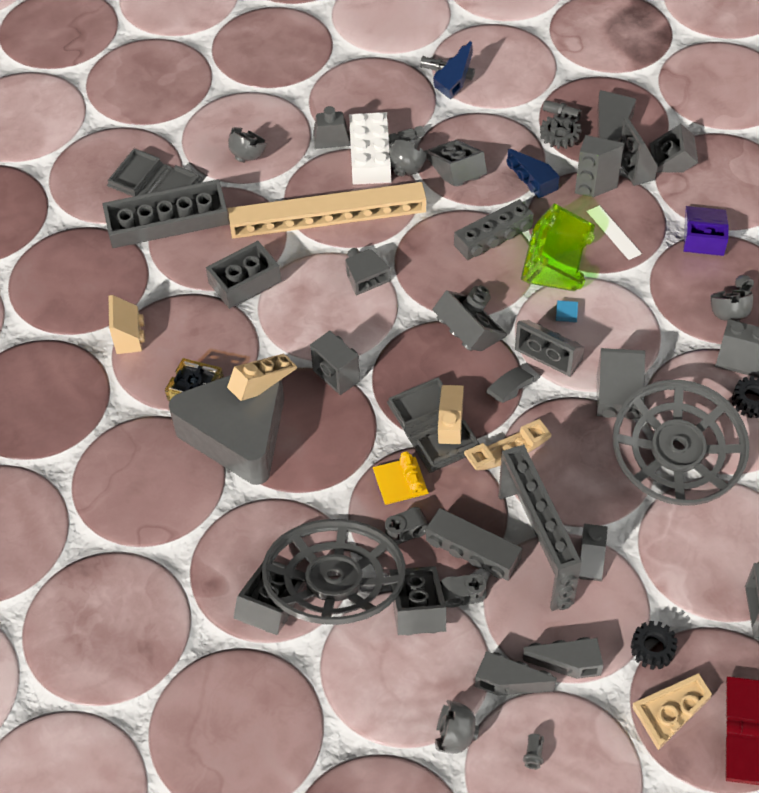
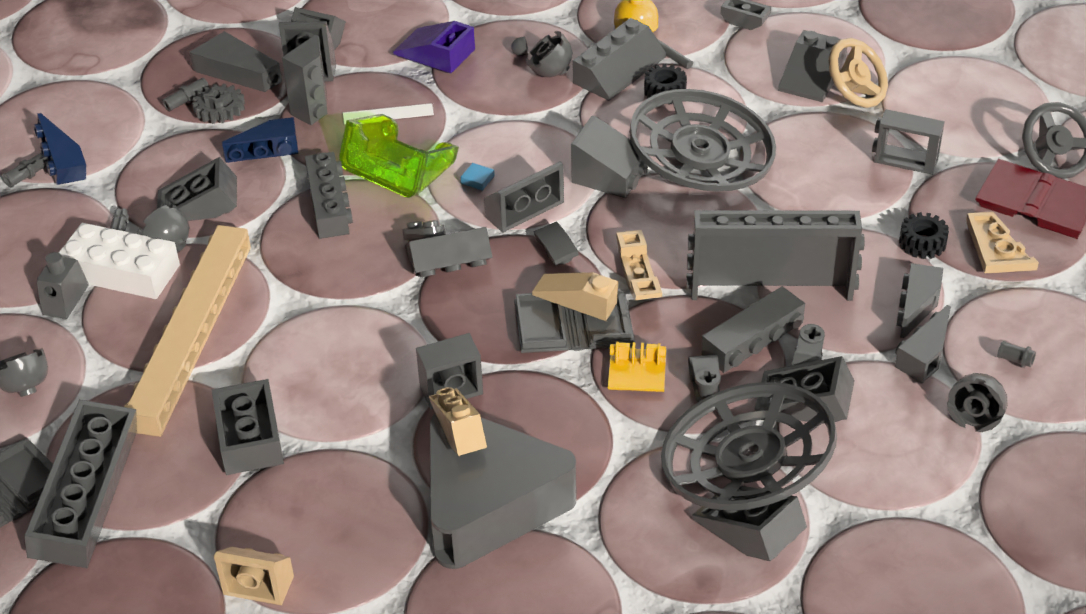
camera: 70 degrees left, 10 degrees down
(191, 375) = (395, 519): piece -> none
(366, 270) = (312, 316): dark grey torso -> none

